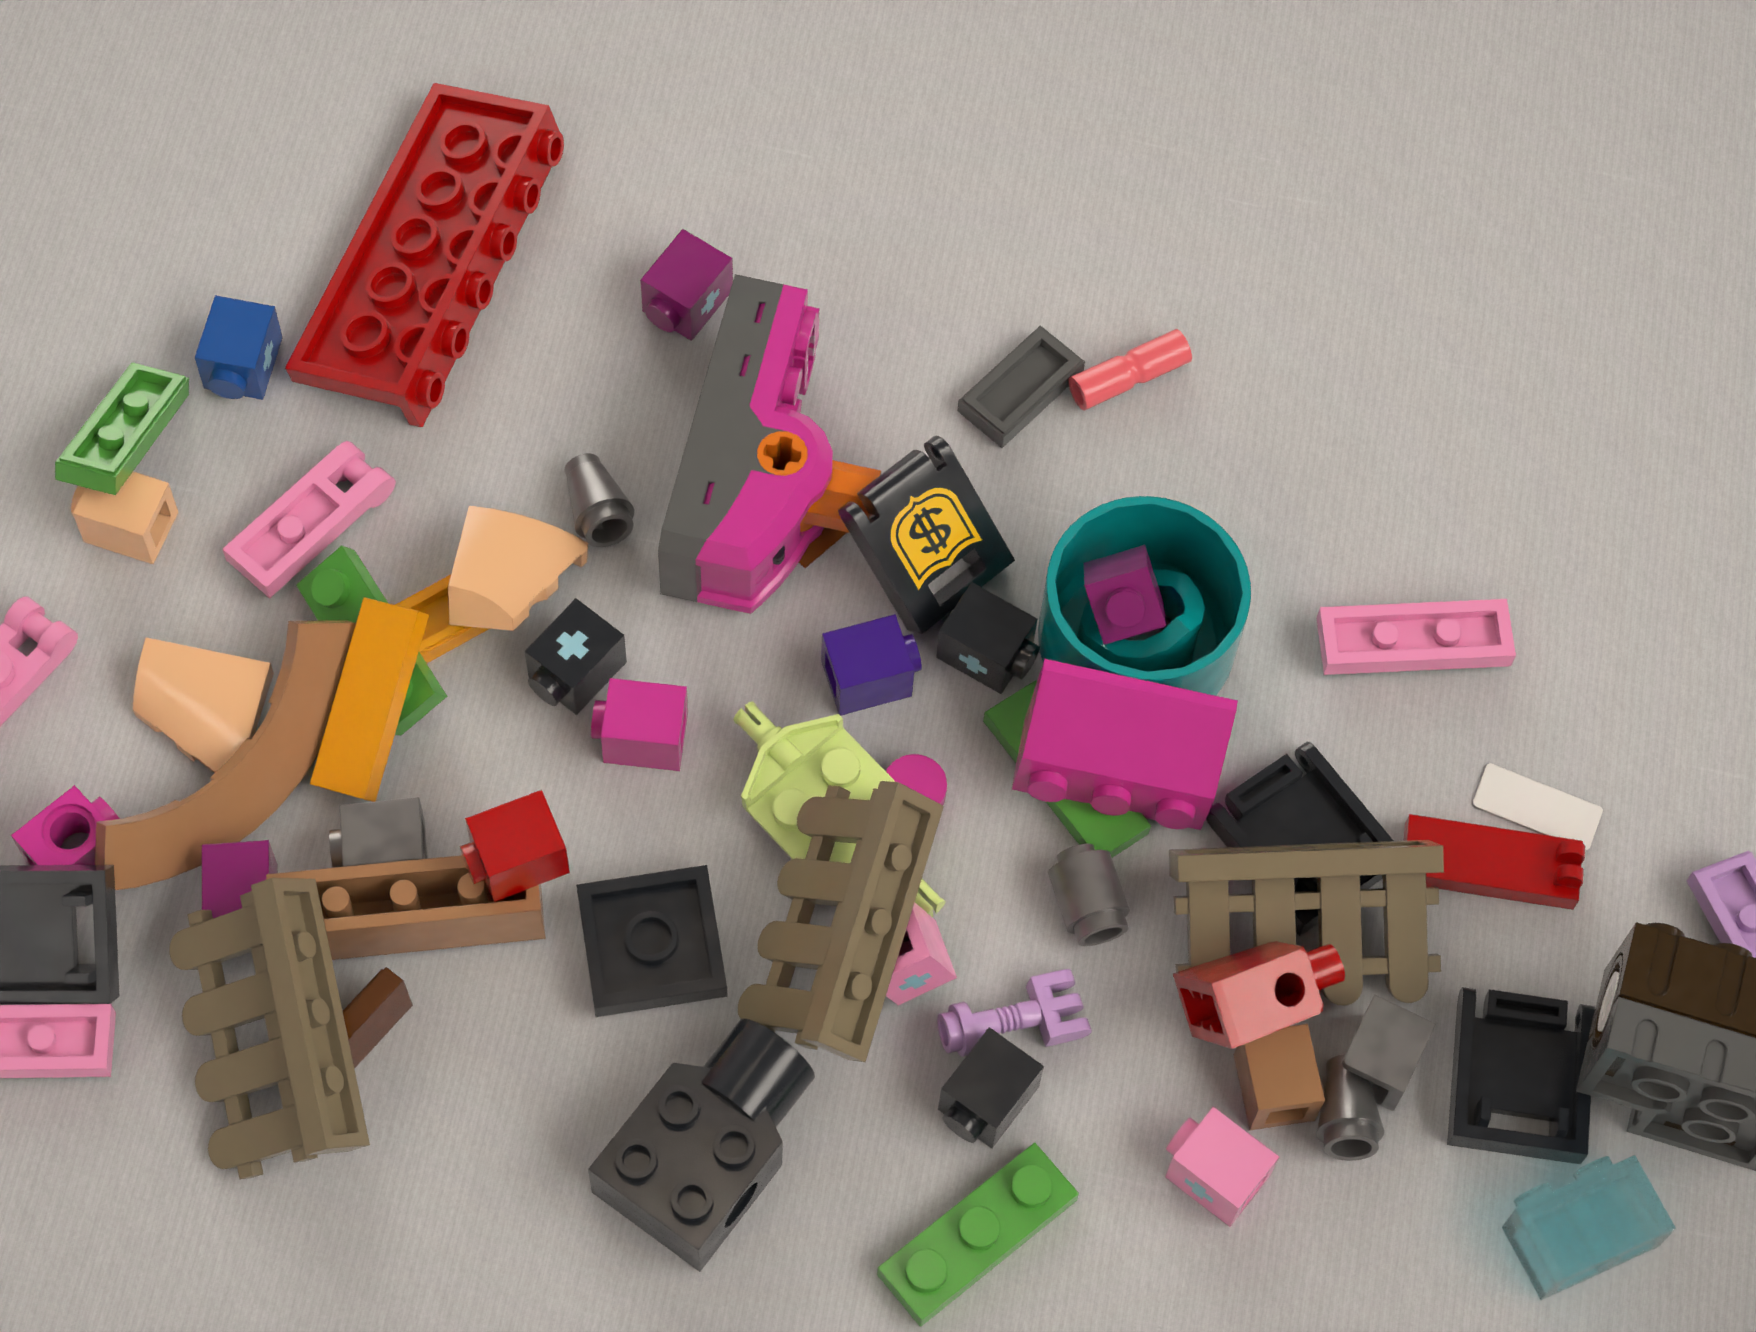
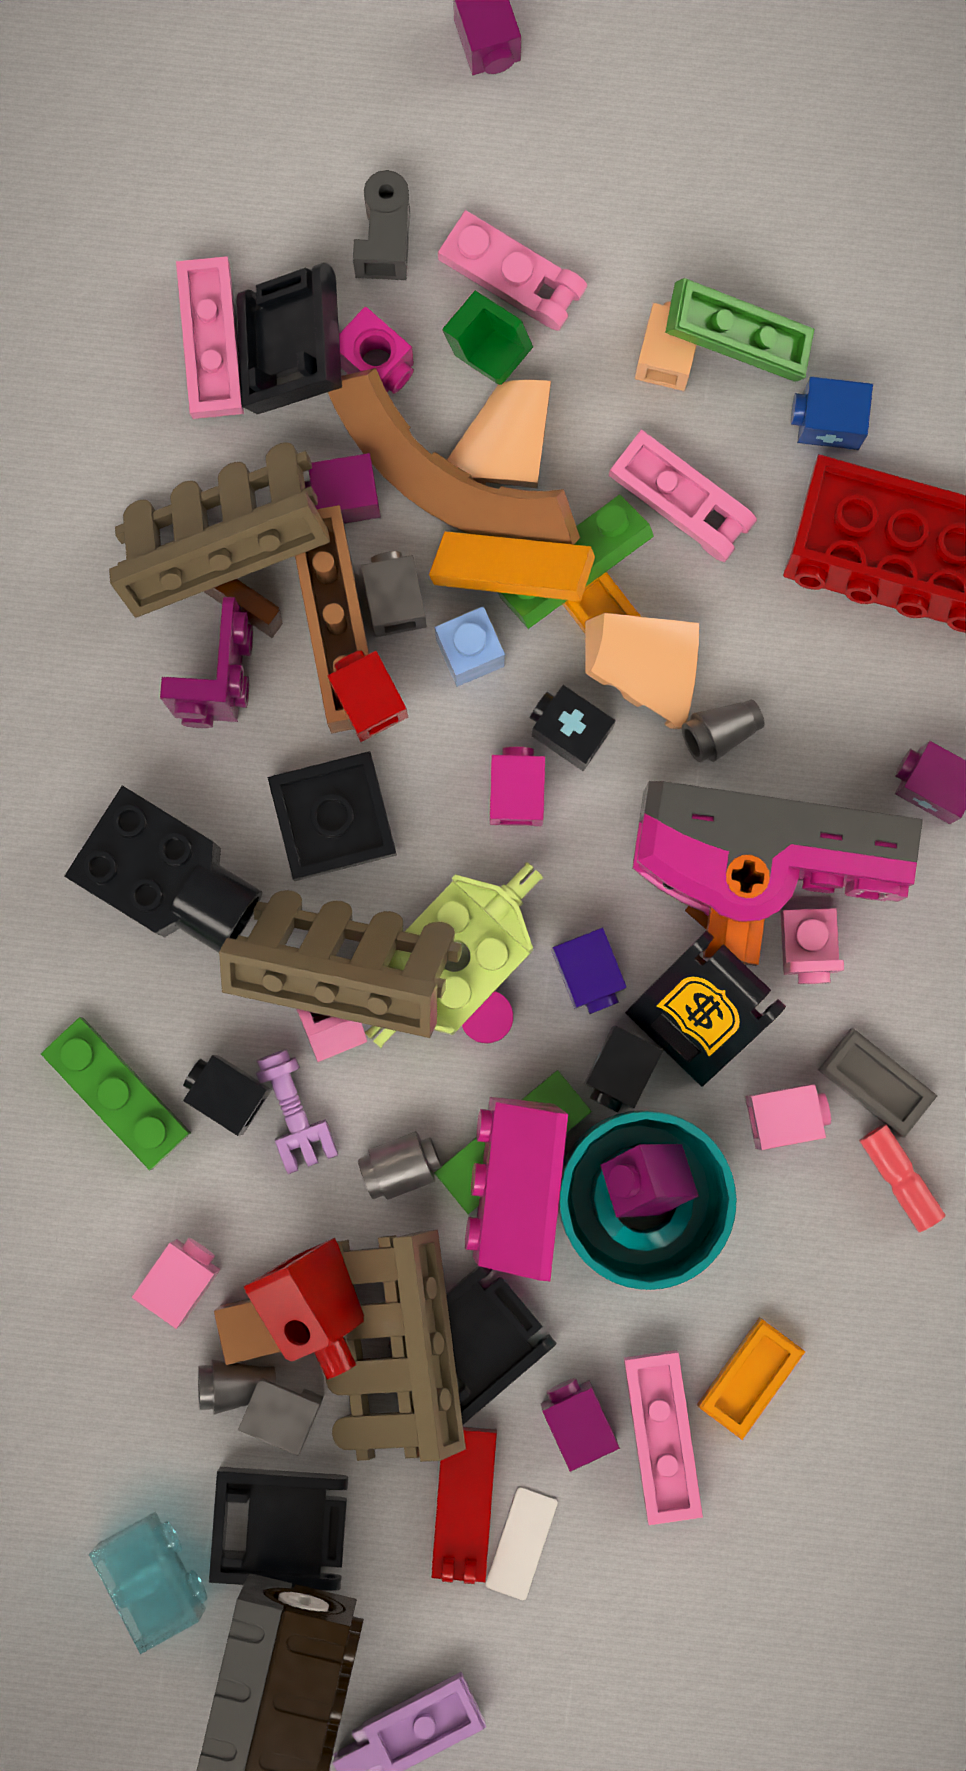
camera: 90 degrees right, 20 degrees up
(76, 706) = (487, 338): none -> green panel
(457, 1031) = (205, 700): none -> magenta bracket
(461, 759) = (470, 646): none -> light blue brick
(863, 433) = (810, 944): none -> bright pink bracket
(1055, 474) = (788, 1116): none -> bright pink brick
(1350, 545) = (750, 1378): none -> light orange tile
(1400, 721) = (578, 1423): none -> magenta brick

